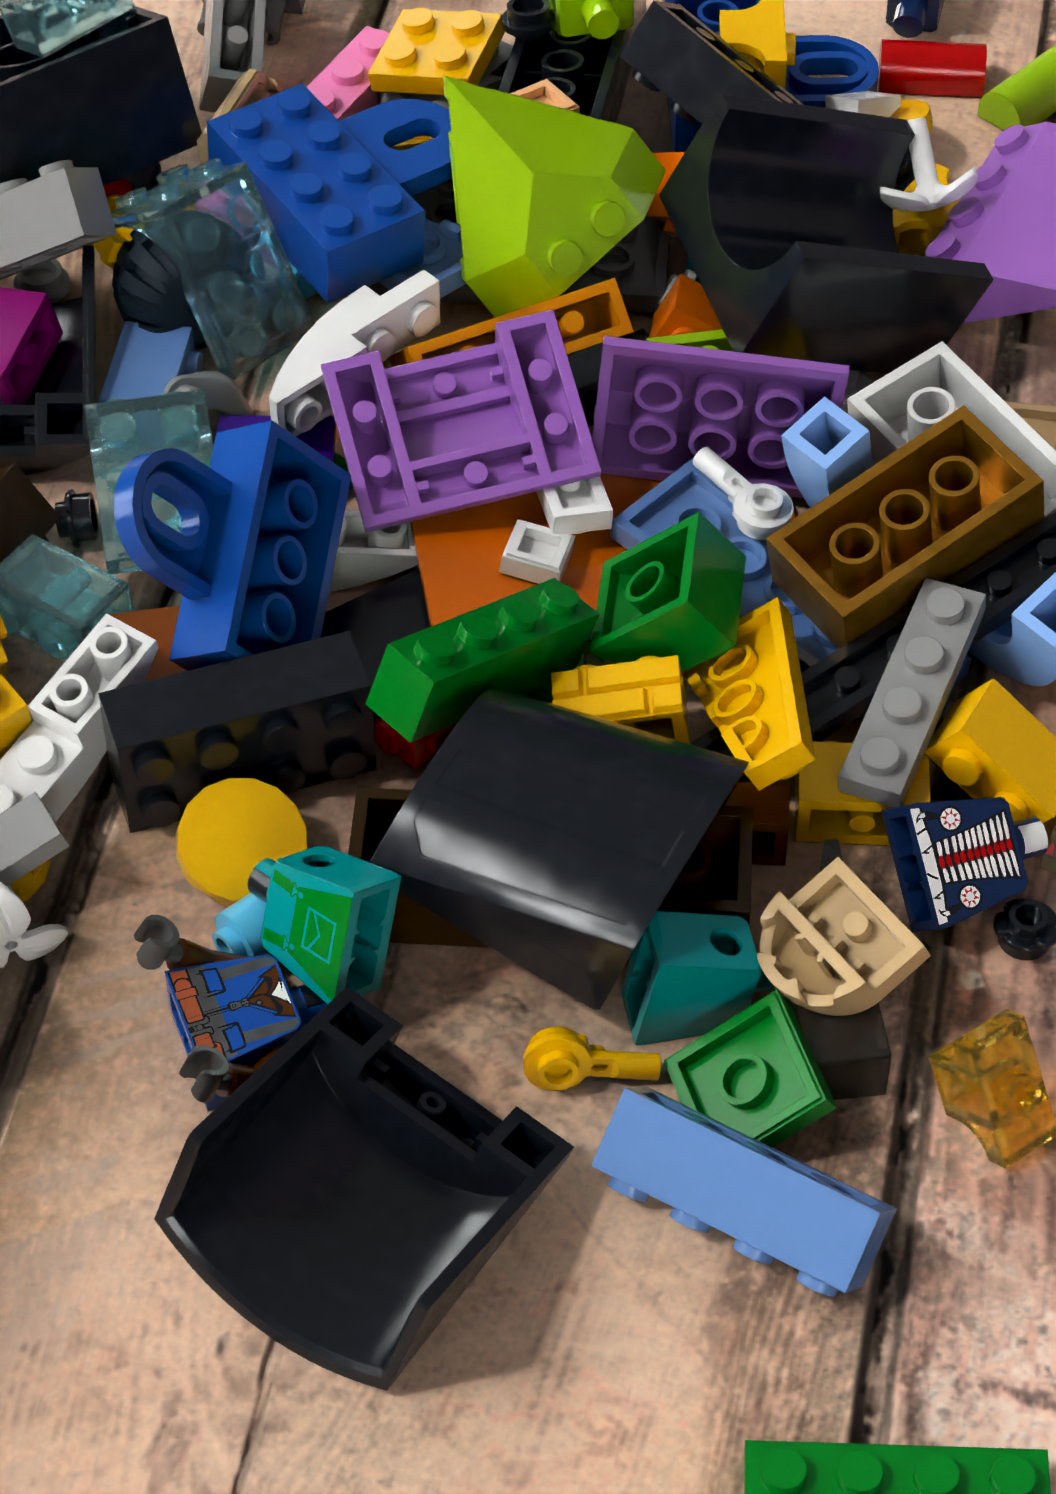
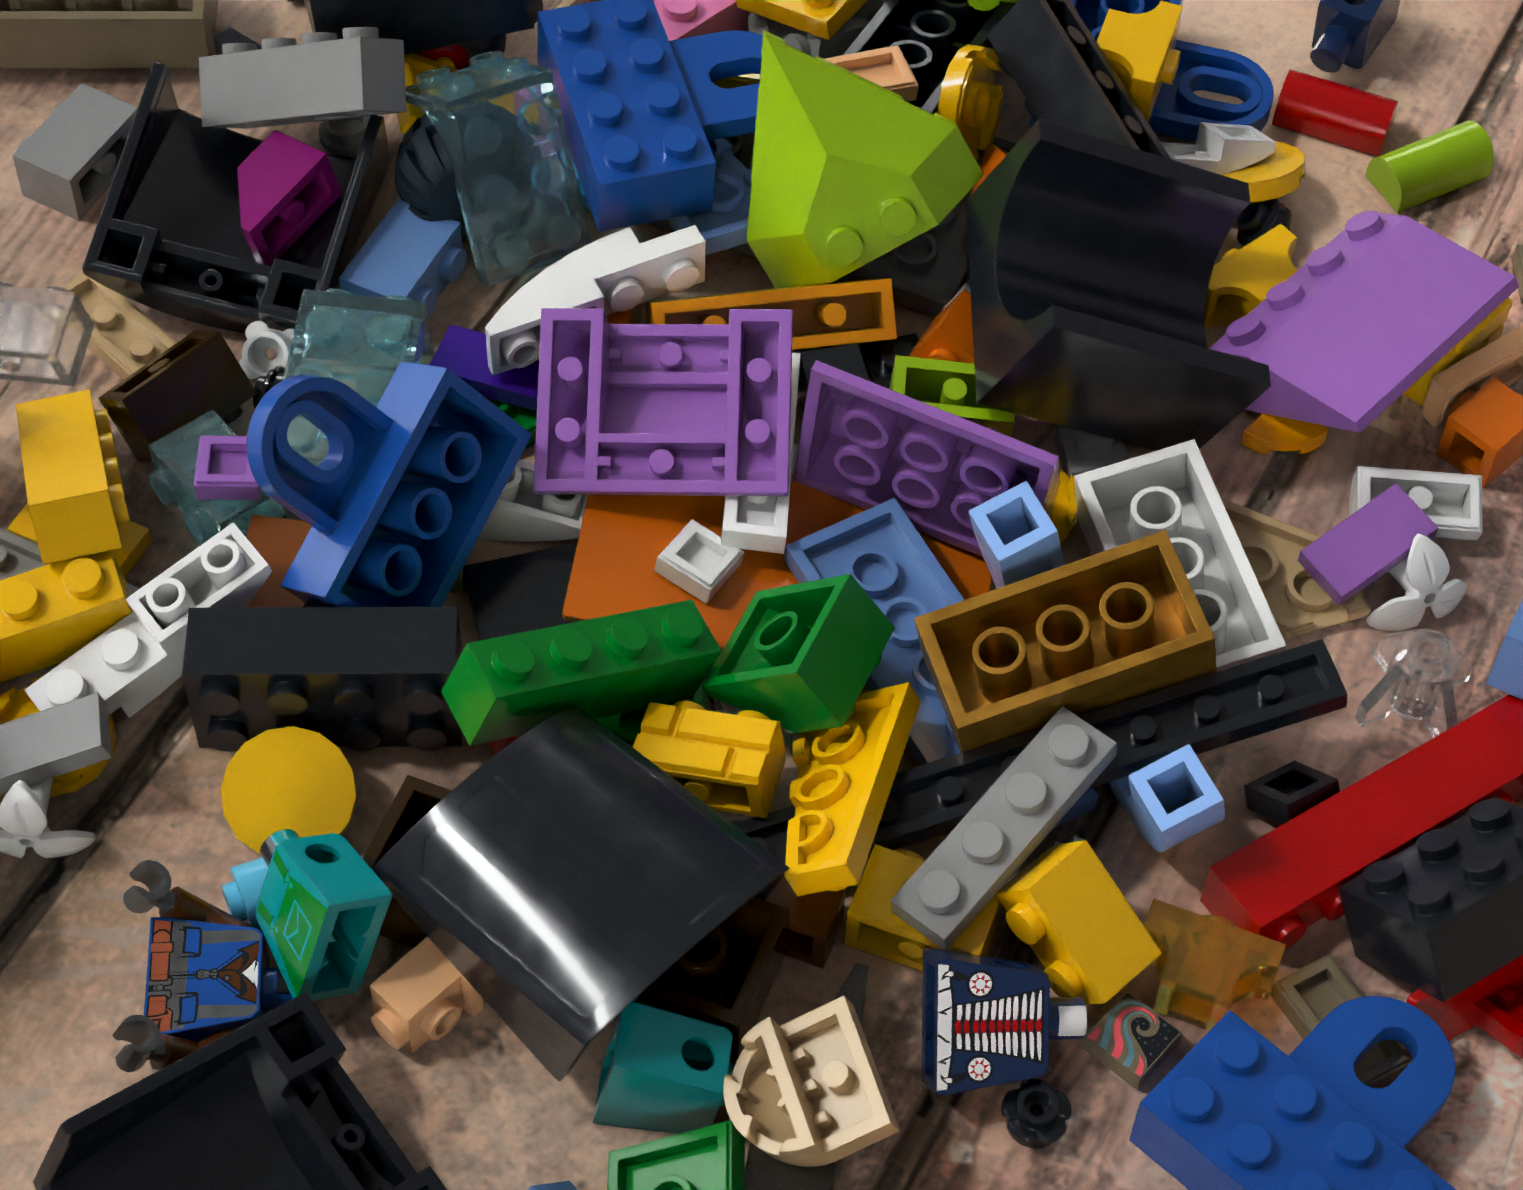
camera: 15 degrees right, 5 degrees up
(65, 470) = (259, 340): none -> white plate
(73, 576) = (224, 470): none -> medium lavender tile
(220, 391) = (449, 297): light grey arm -> none
(441, 975) = (421, 998): none -> light nougat brick
(563, 1059) = (509, 1121): yellow plate -> none
(616, 99) = (972, 96): none -> yellow tile
(756, 507) = (937, 572): white plate -> none
(929, 191) = (1252, 262): white plant -> none
(1000, 334) = (1283, 434): none -> light orange tile

